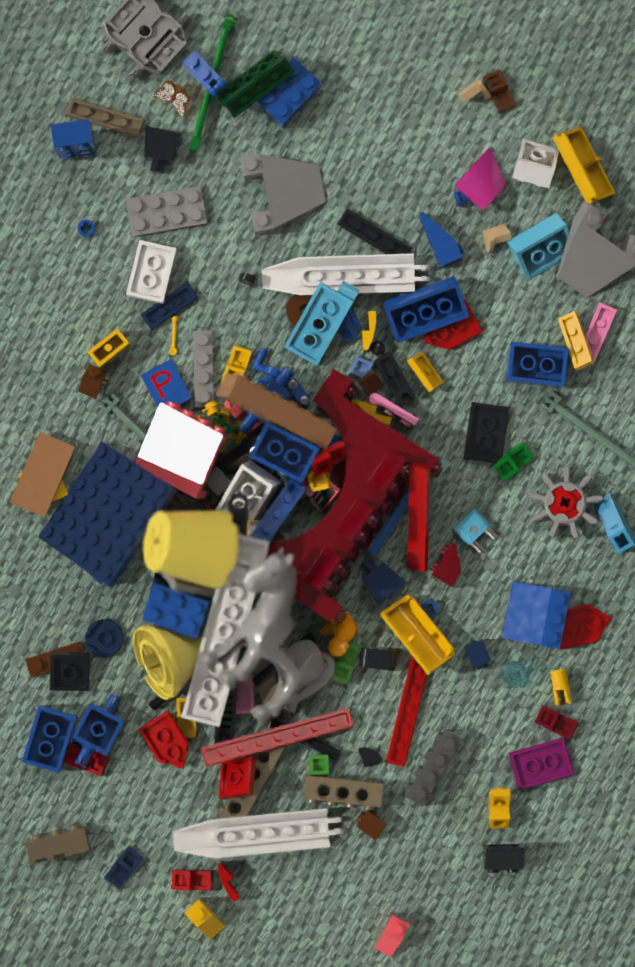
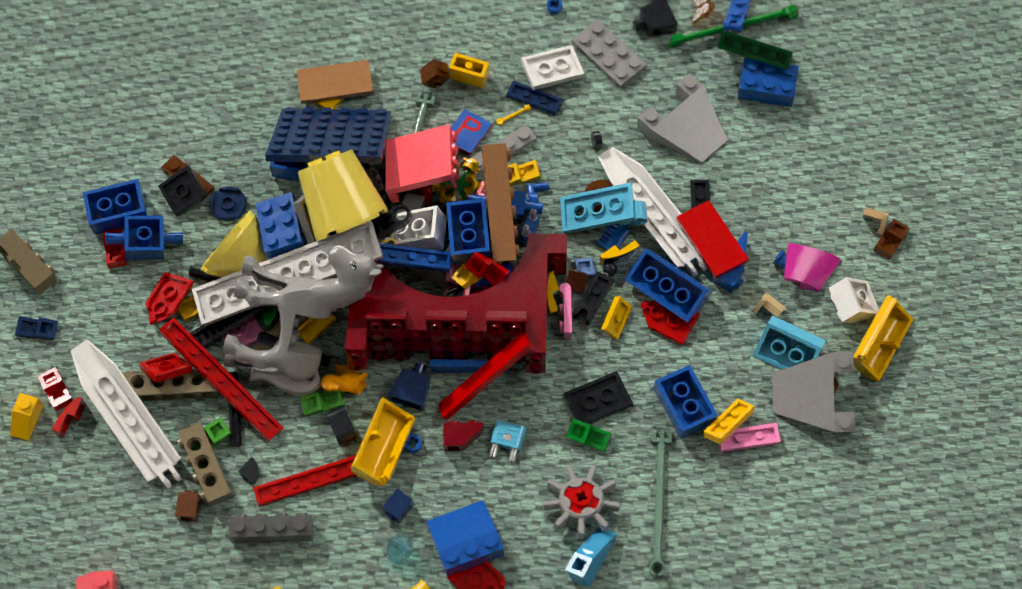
camera: 60 degrees right, 20 degrees down
(410, 246) = (712, 239): none -> red tile

